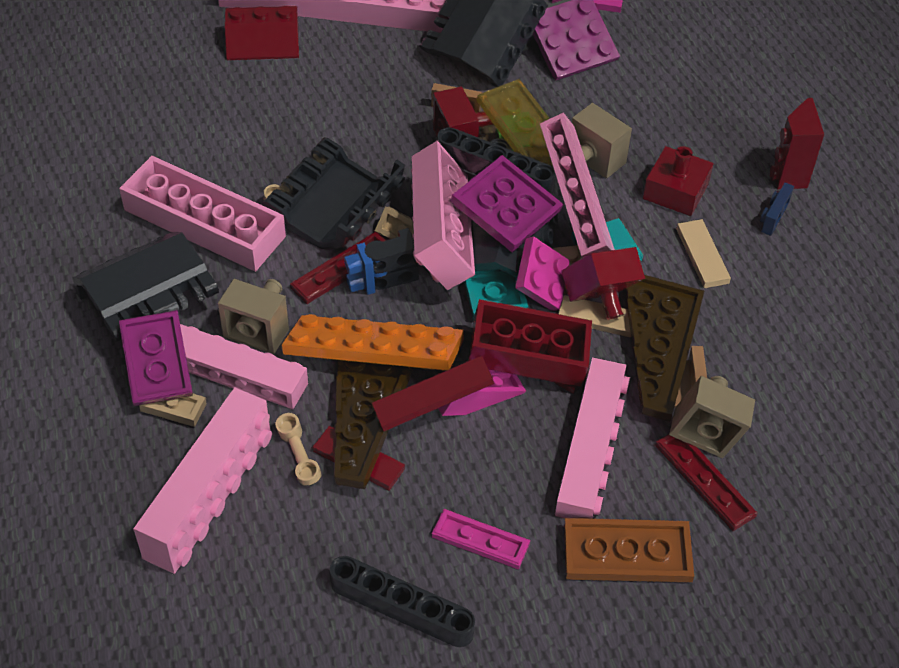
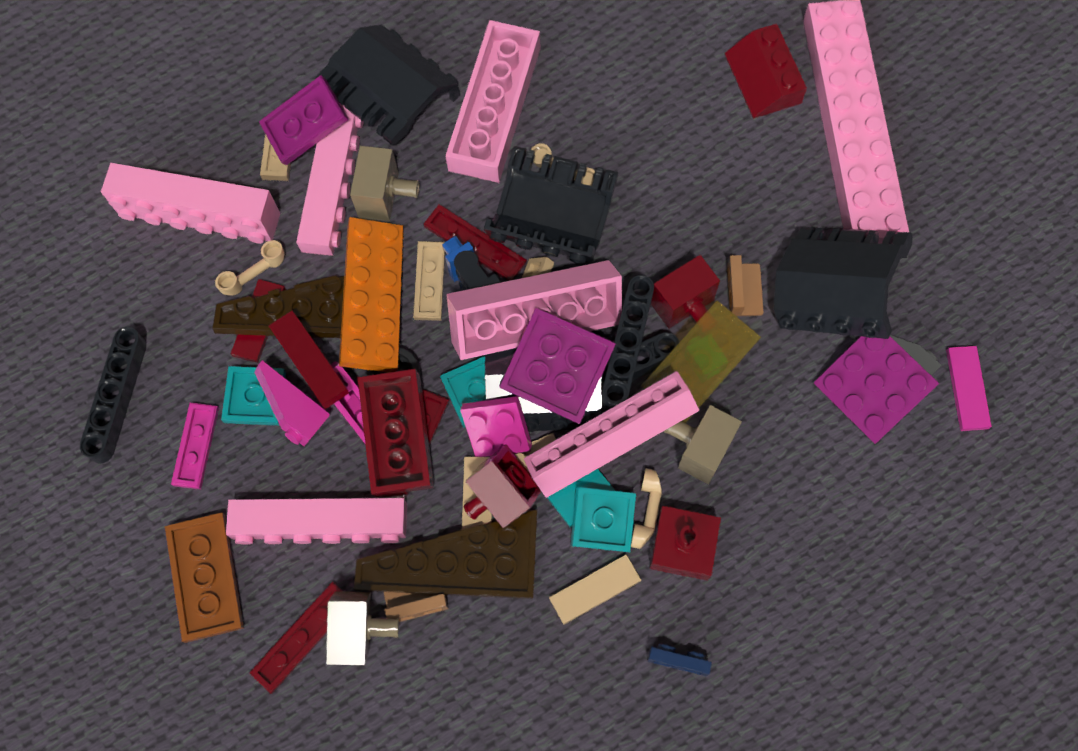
camera: 80 degrees right, 20 degrees up
(362, 306) = (429, 281): none -> tan tile
(443, 472) = (245, 398): none -> teal plate
(469, 431) = (293, 409): none -> dark pink slope
(622, 191) = (643, 533): none -> tan bar
(644, 227) = (603, 519): none -> teal plate
(798, 147) = (759, 664): dark red slope -> none

